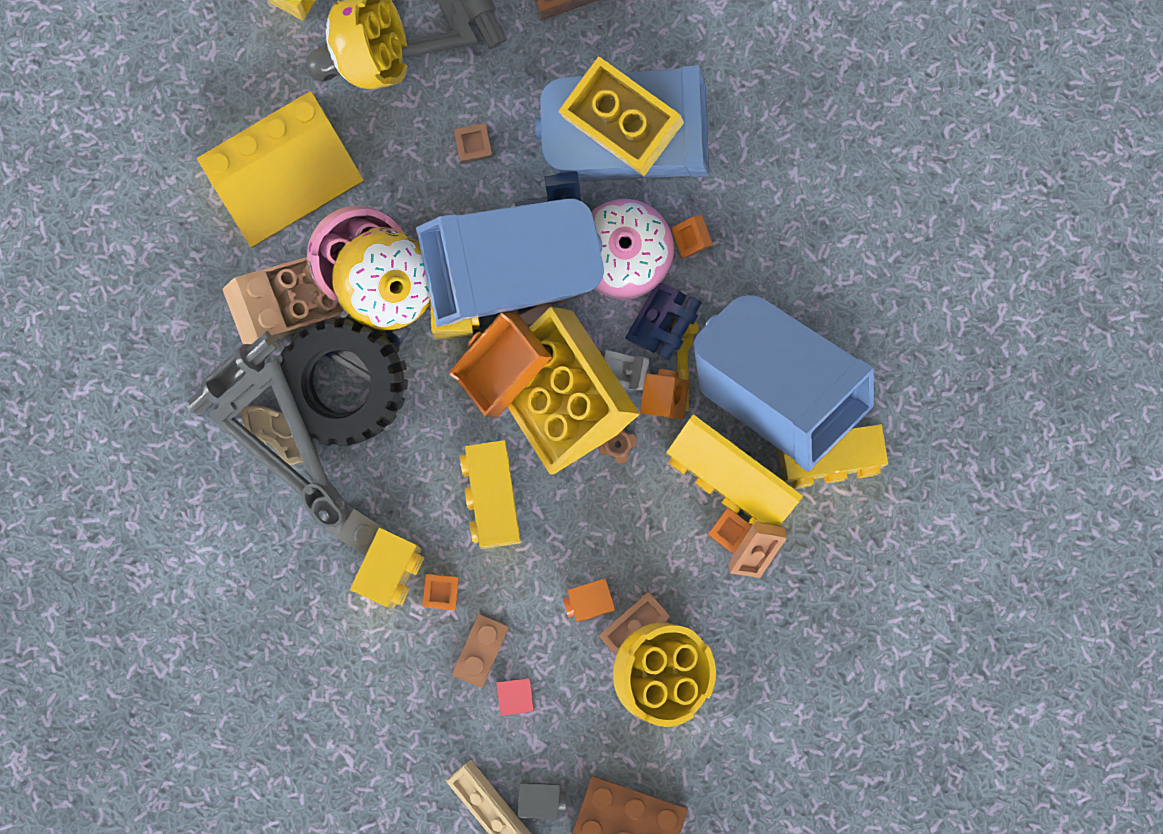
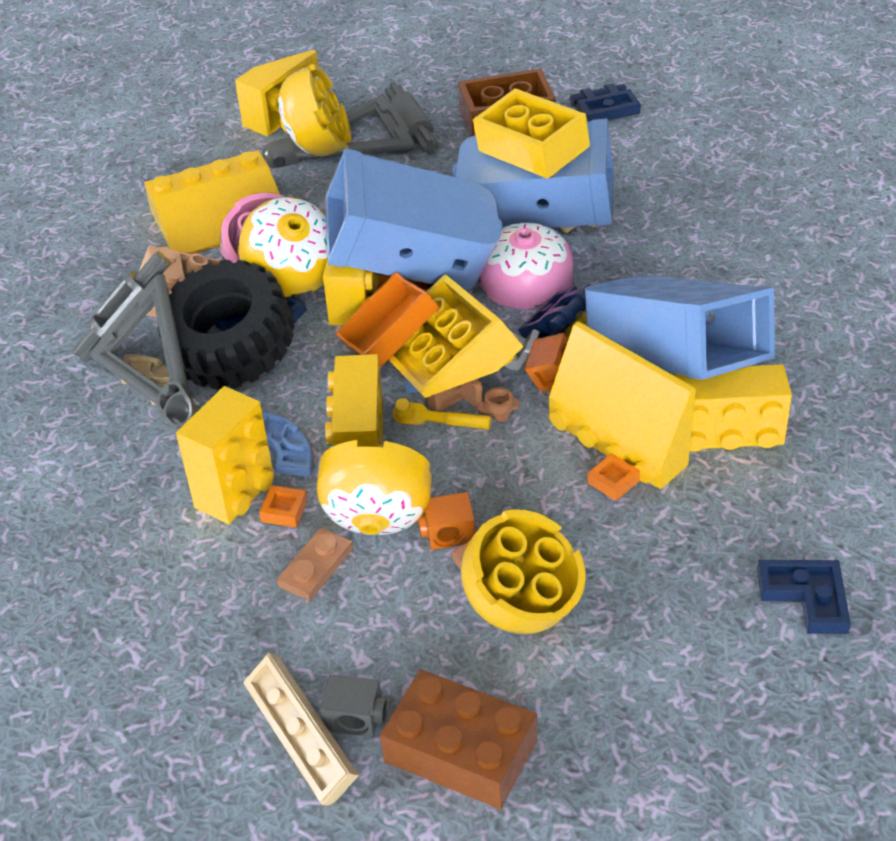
camera: 10 degrees right, 40 degrees down
(427, 510) = (289, 446): none -> medium blue tile
(515, 697) = (345, 608): coral tile -> none
(524, 591) = (373, 487): none -> yellow cylinder
(531, 462) = (416, 414): none -> yellow piece
(692, 236) = (592, 262): orange plate -> none
(757, 550) = (642, 479): nougat plate -> none
(905, 639) = (815, 584): none -> dark blue plate

